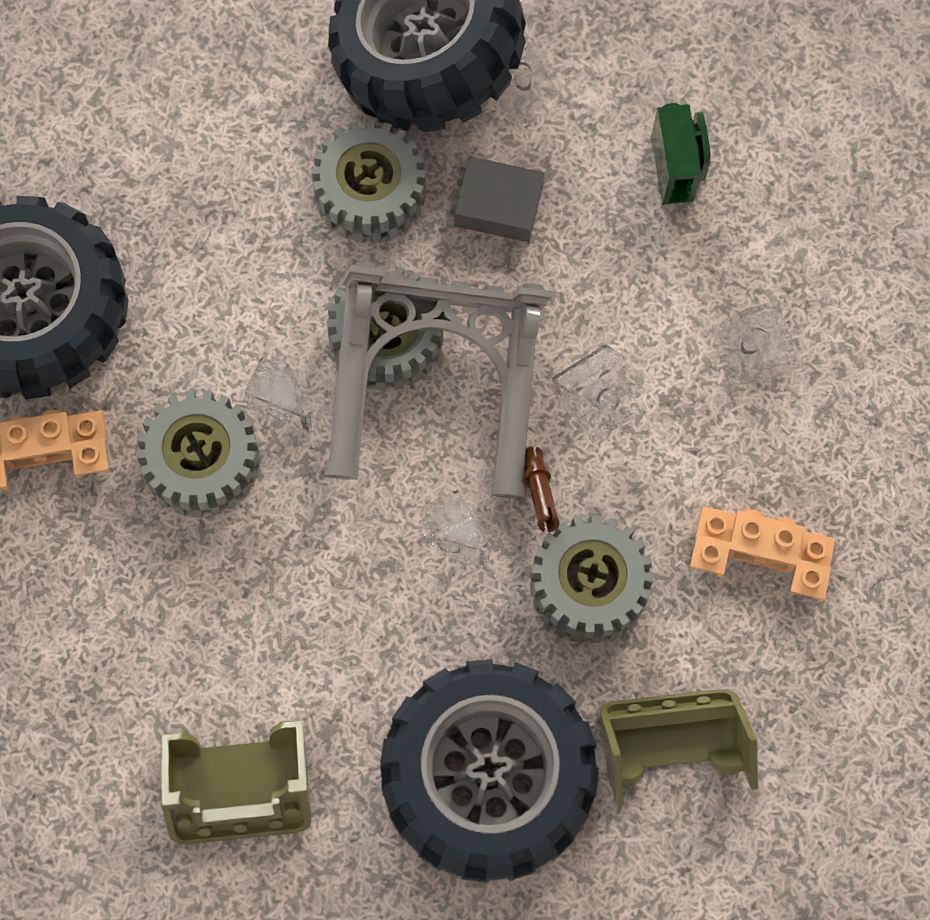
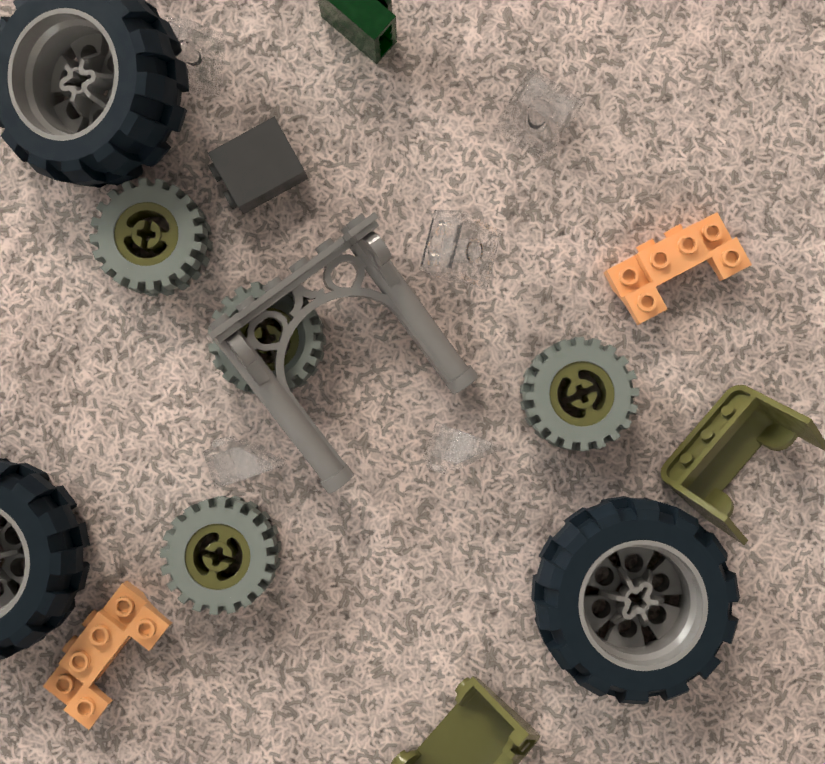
camera: 40 degrees left, 15 degrees up
(537, 479) = (477, 355): reddish brown pin -> none

